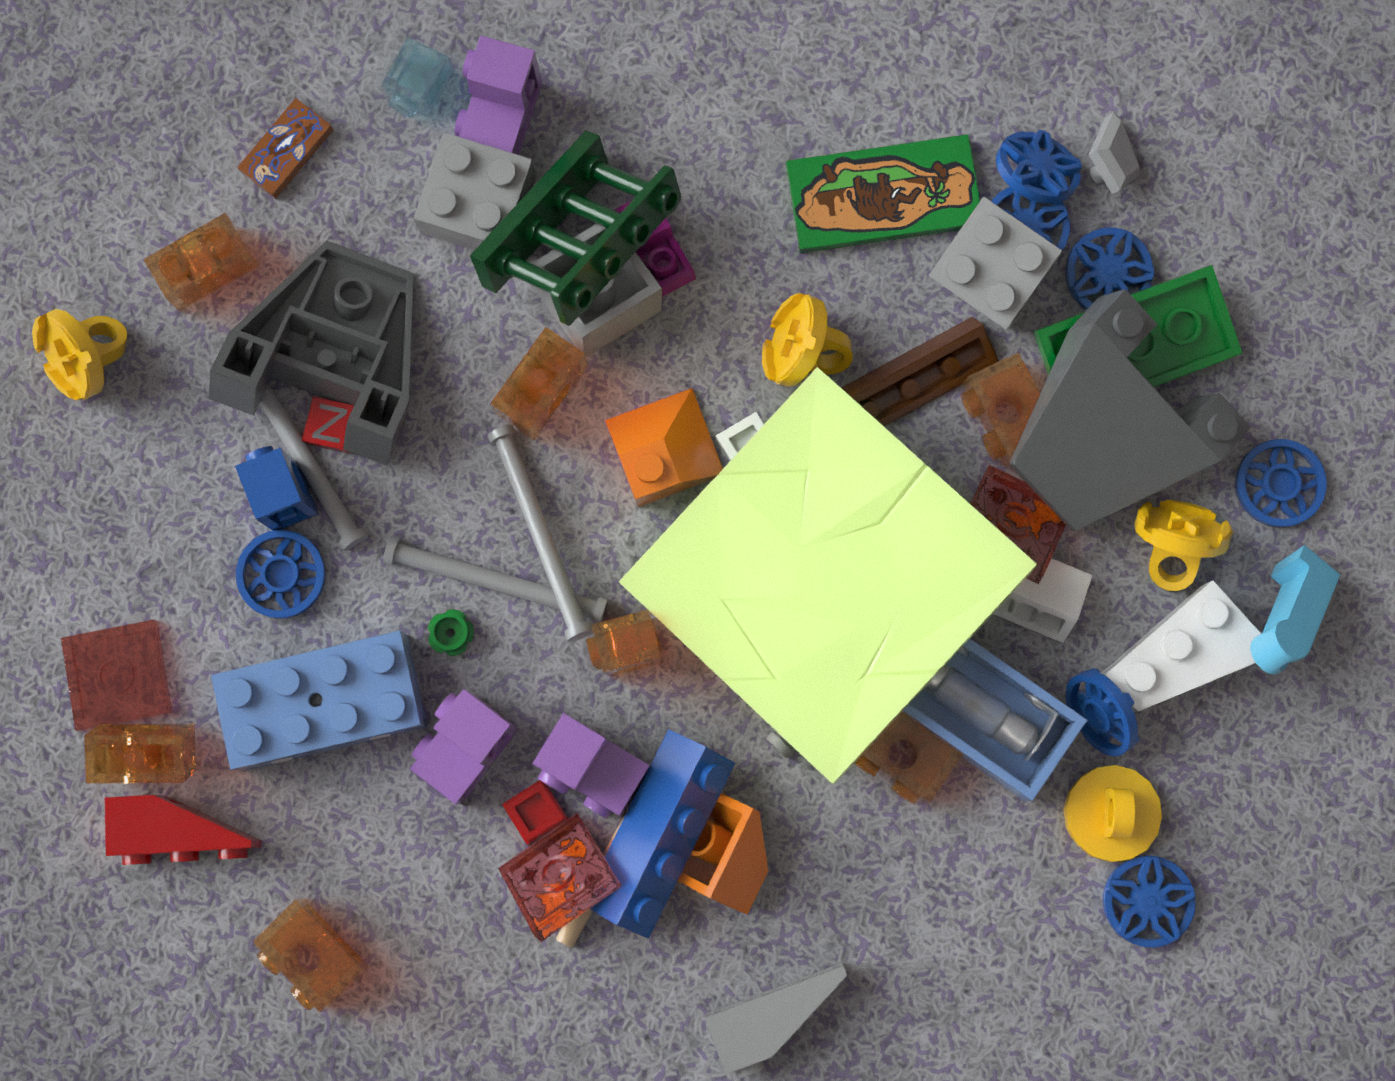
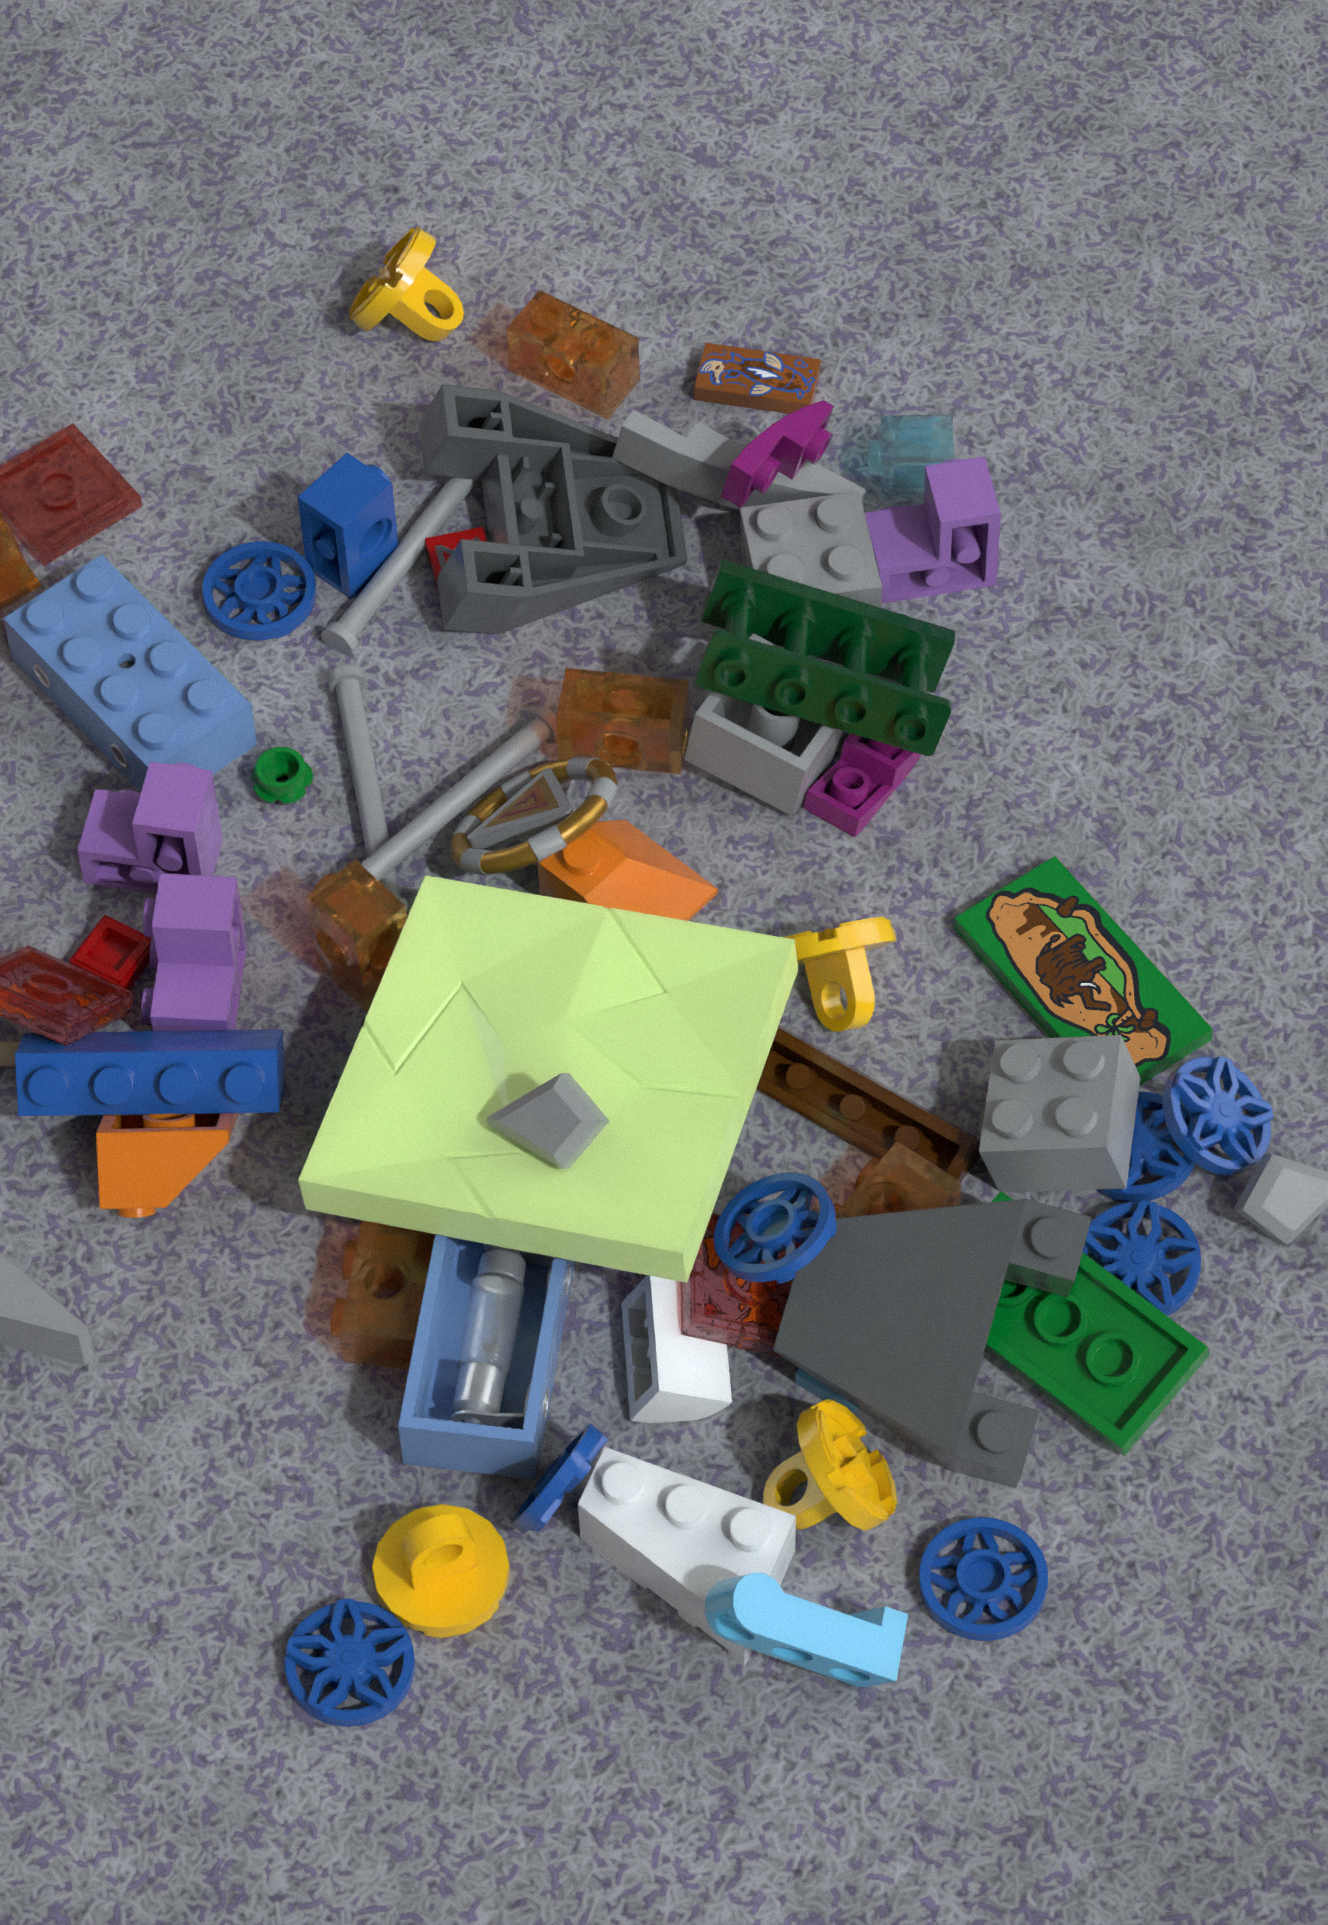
camera: 60 degrees right, 25 degrees down
(383, 193) = (703, 462): none -> light grey slope
(393, 162) = (780, 449): none -> magenta slope
(589, 483) = (535, 813): none -> piece
(892, 598) = (552, 1120): none -> light grey piece
(1008, 486) = (775, 1228): none -> blue wheel

